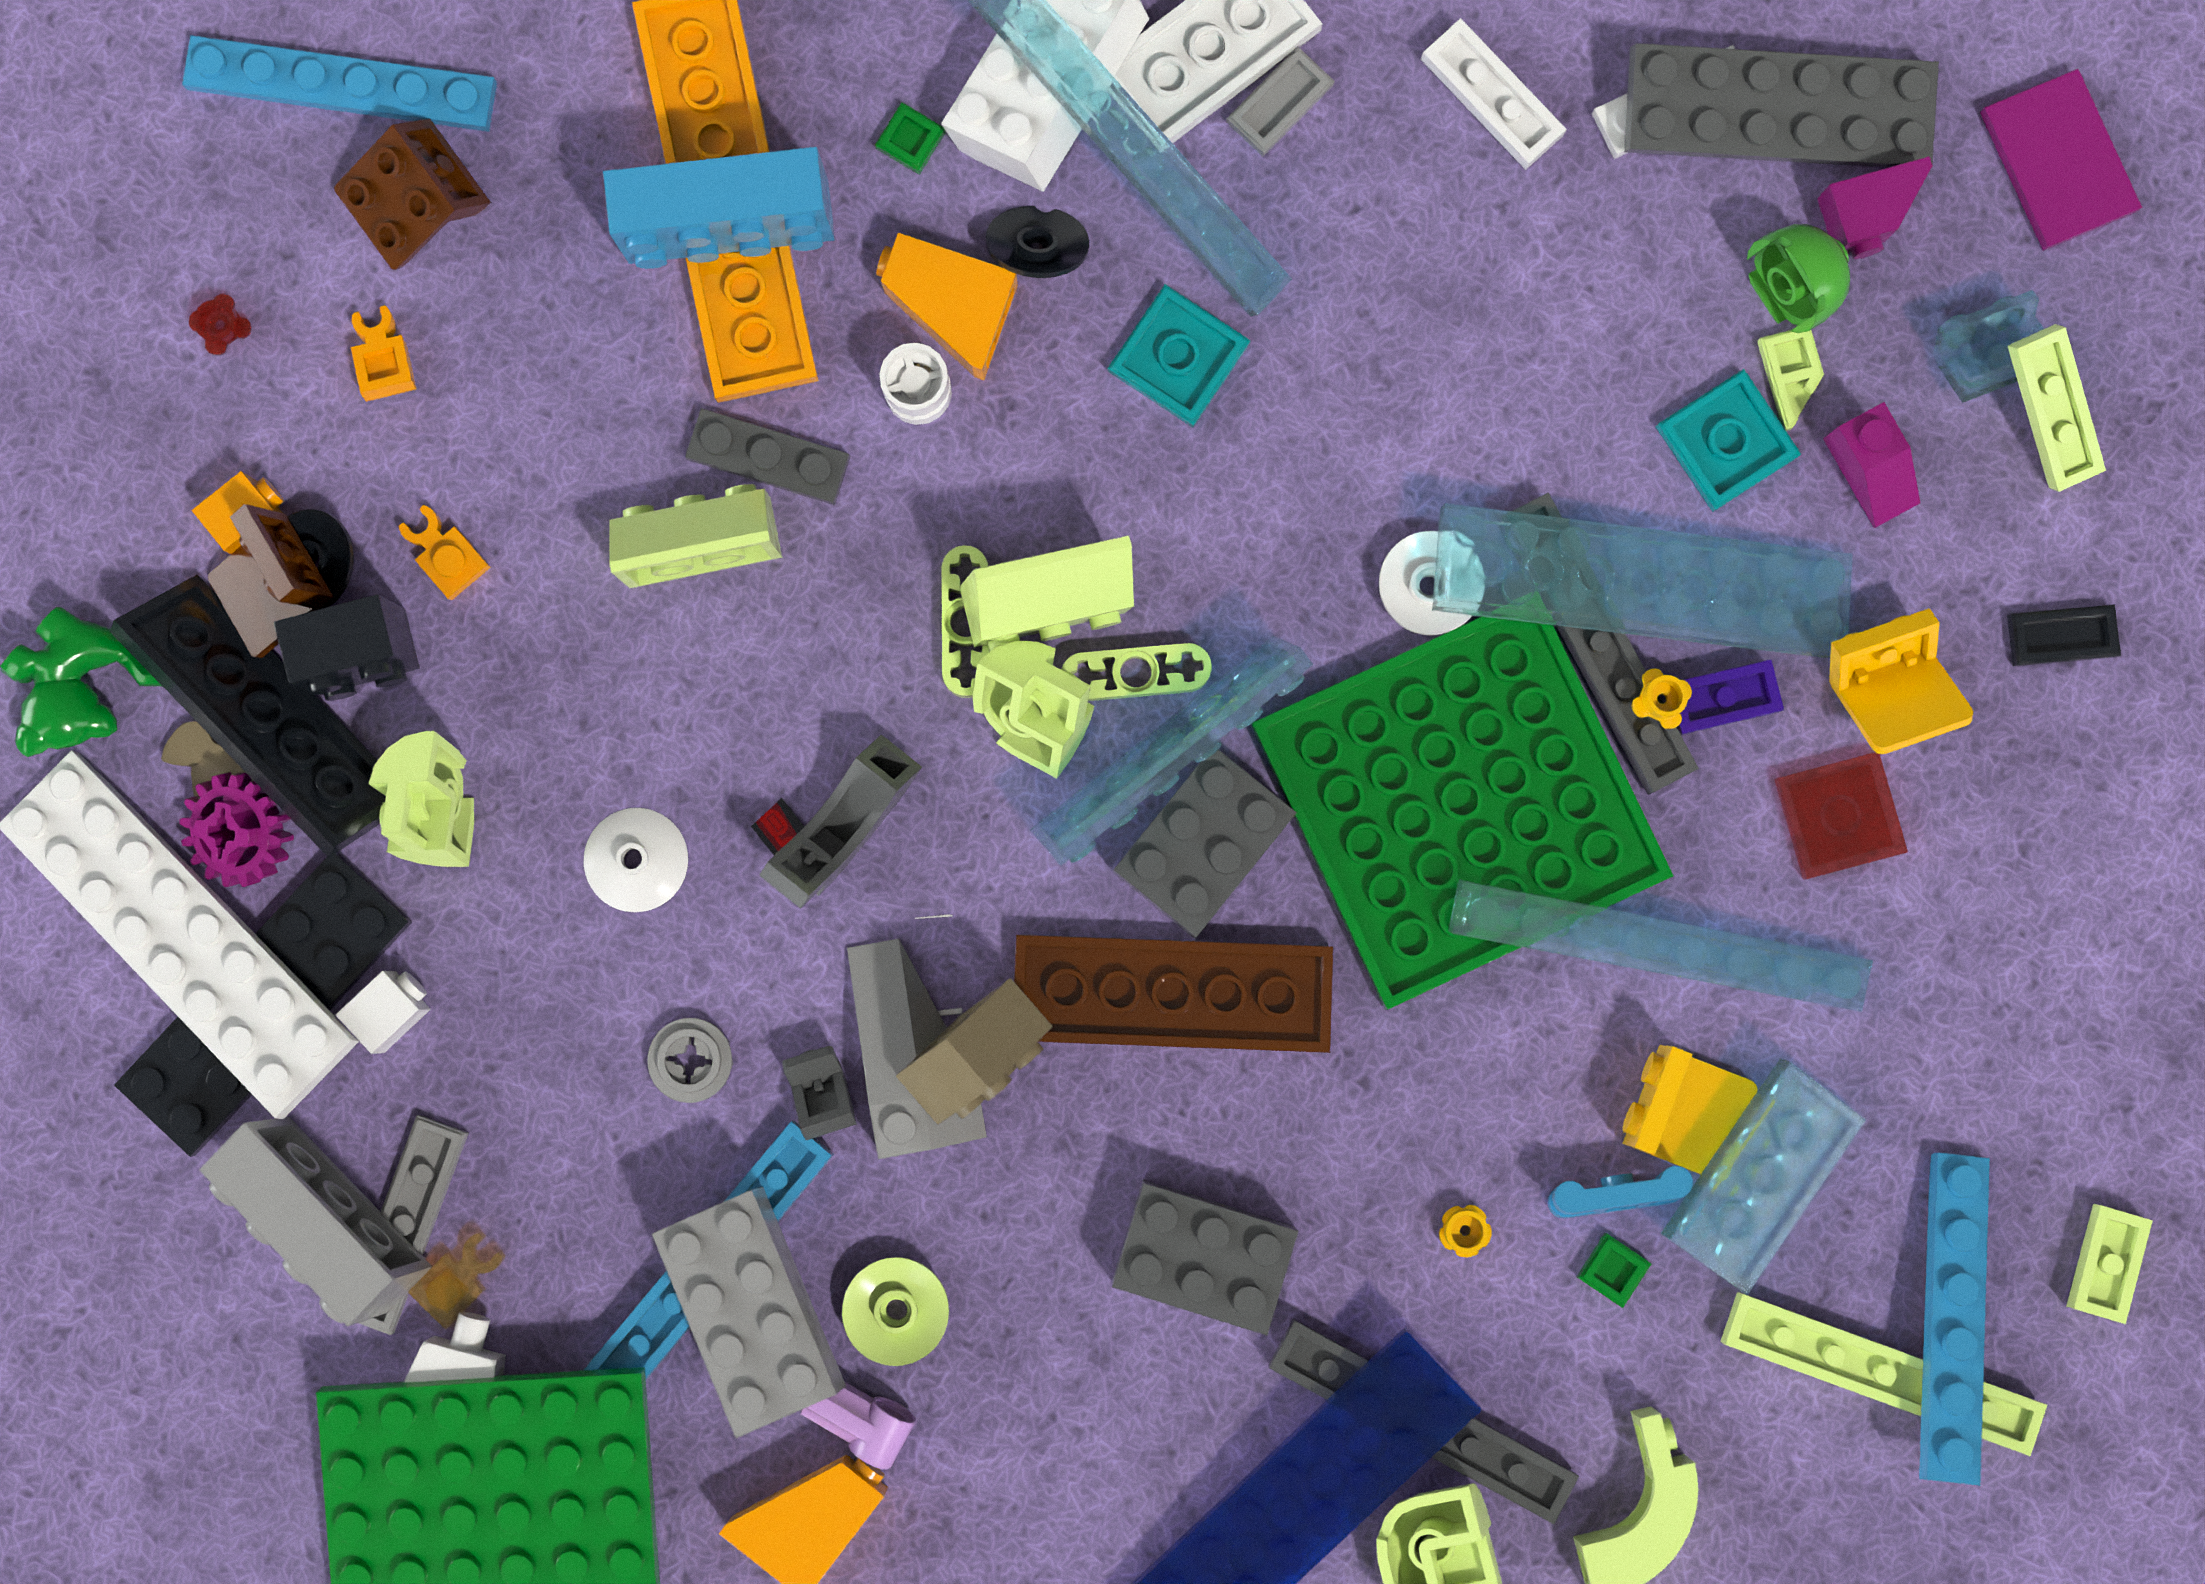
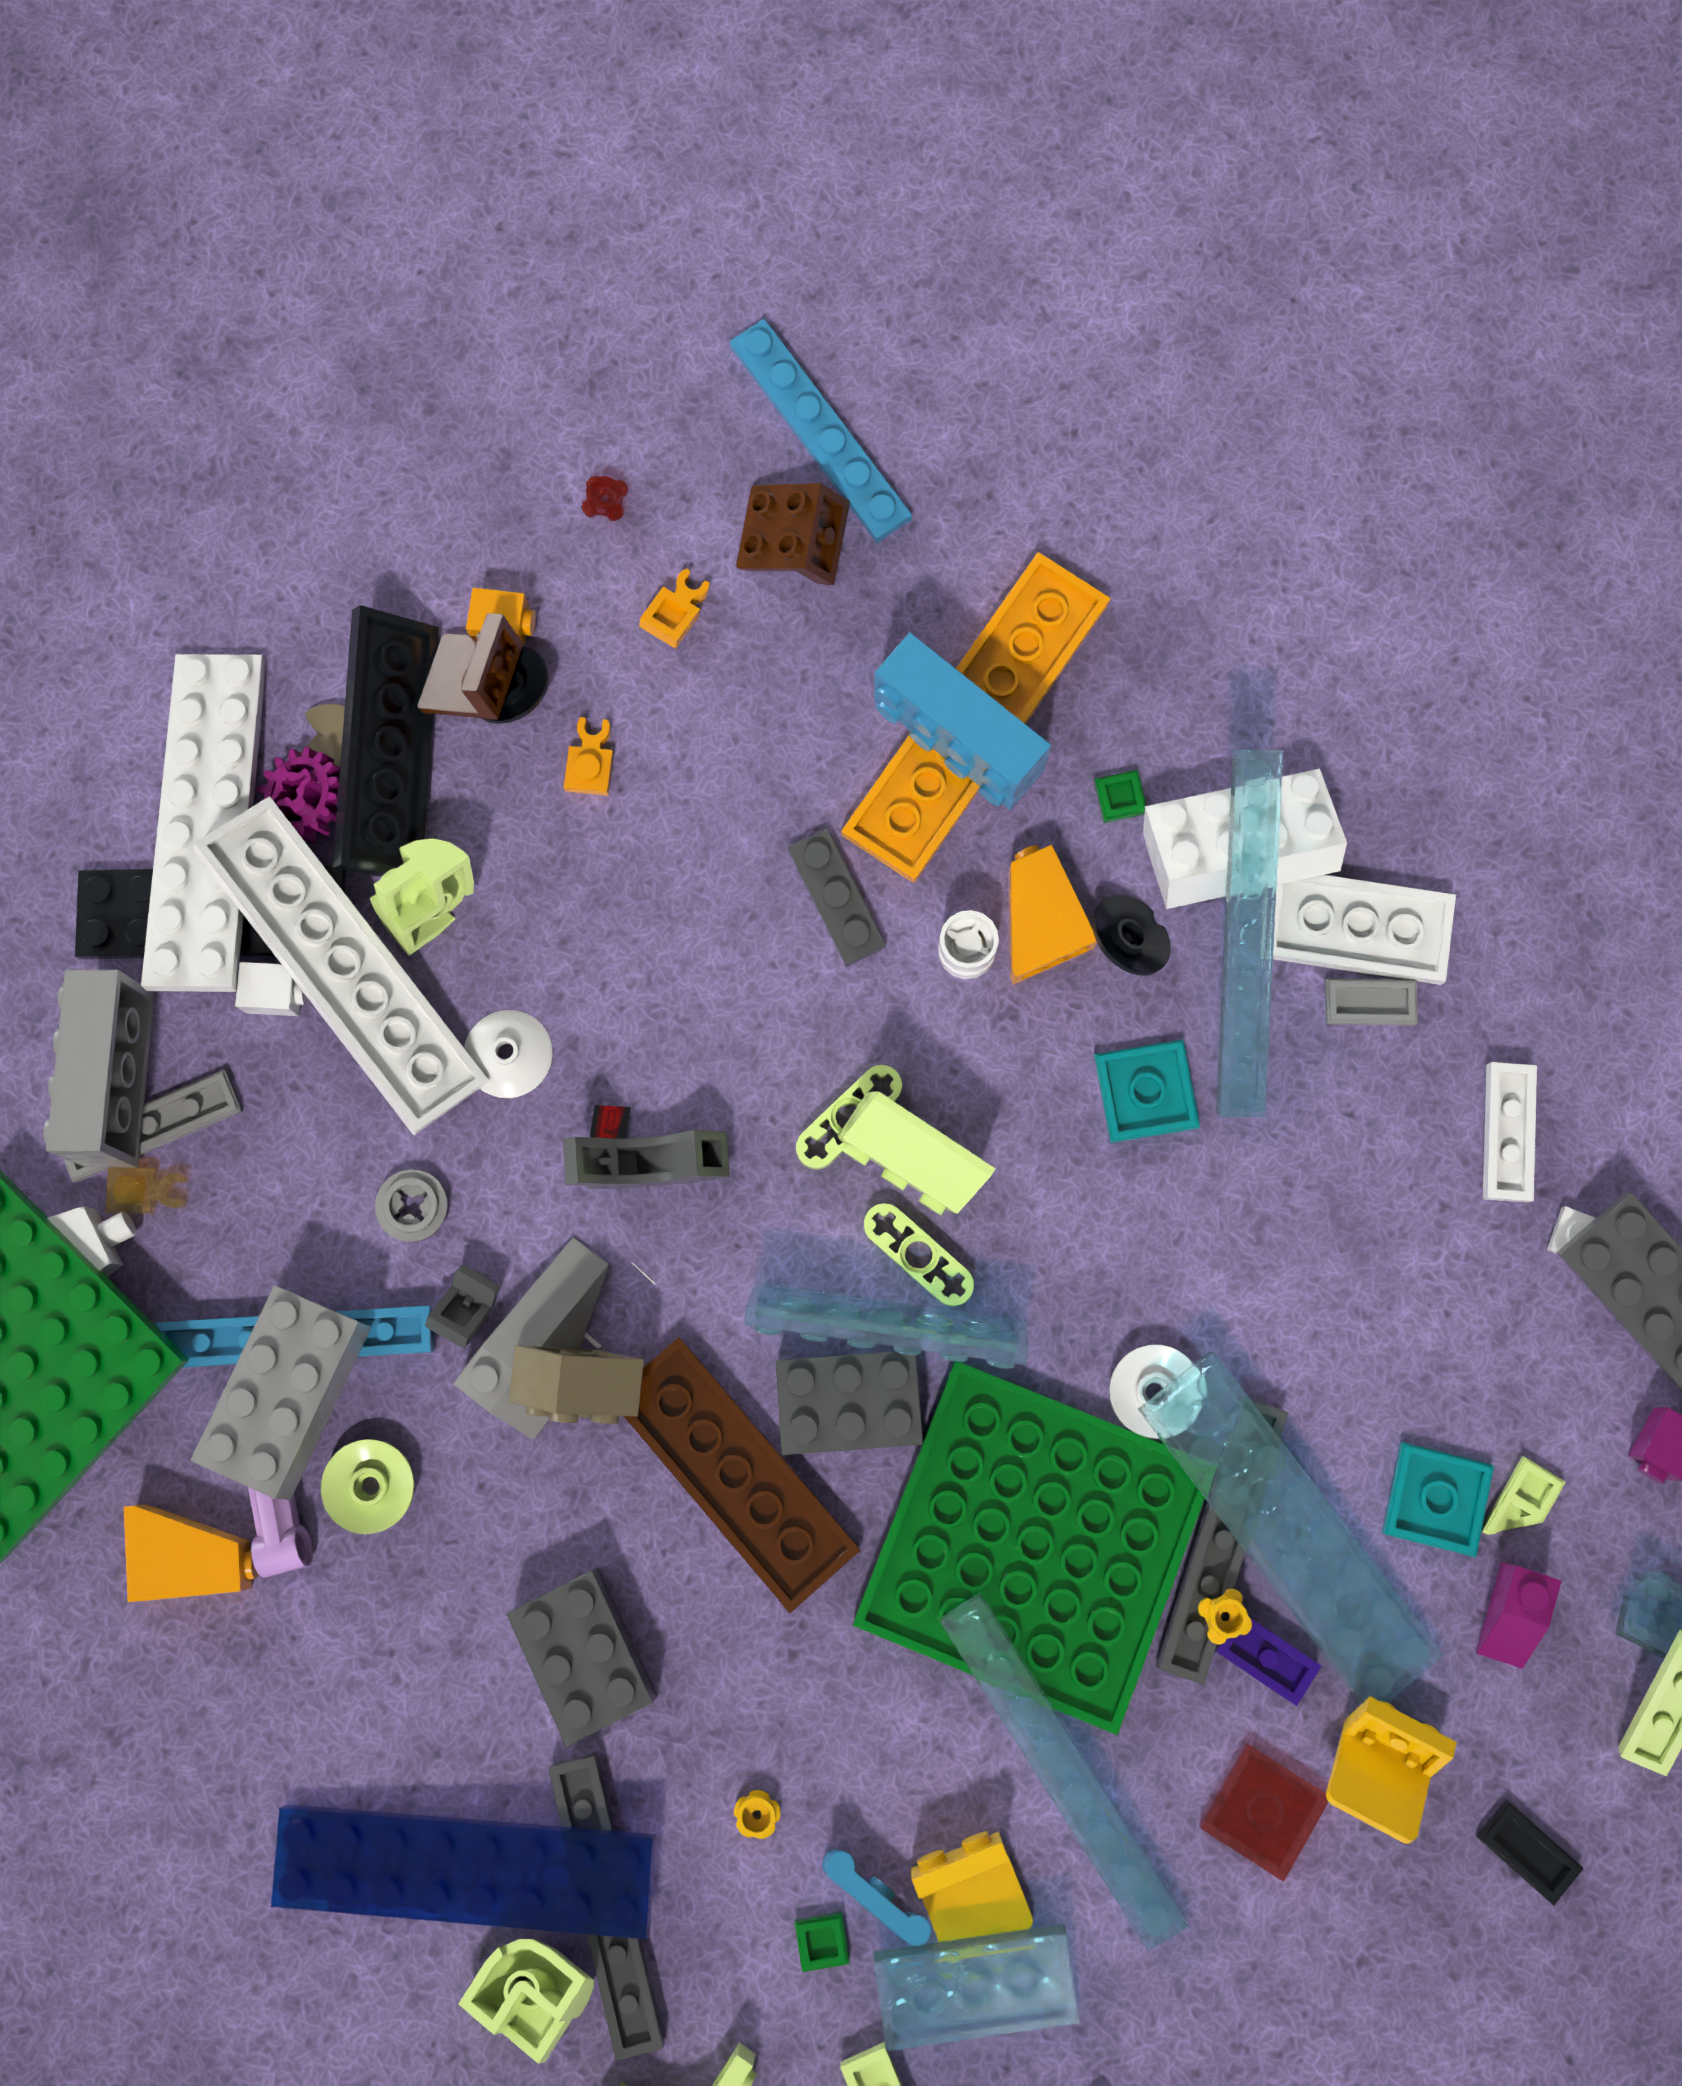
camera: 50 degrees right, 5 degrees down
(61, 707) = (282, 623): green animal -> none
(347, 647) = (474, 756): black brick -> none
(419, 929) = (340, 964): none -> white plate
(693, 536) = (741, 899): yellowish green slope -> none
(1032, 704) = (834, 1208): yellowish green brick -> none
(1800, 275) = (1591, 1445): bright green cylinder -> none

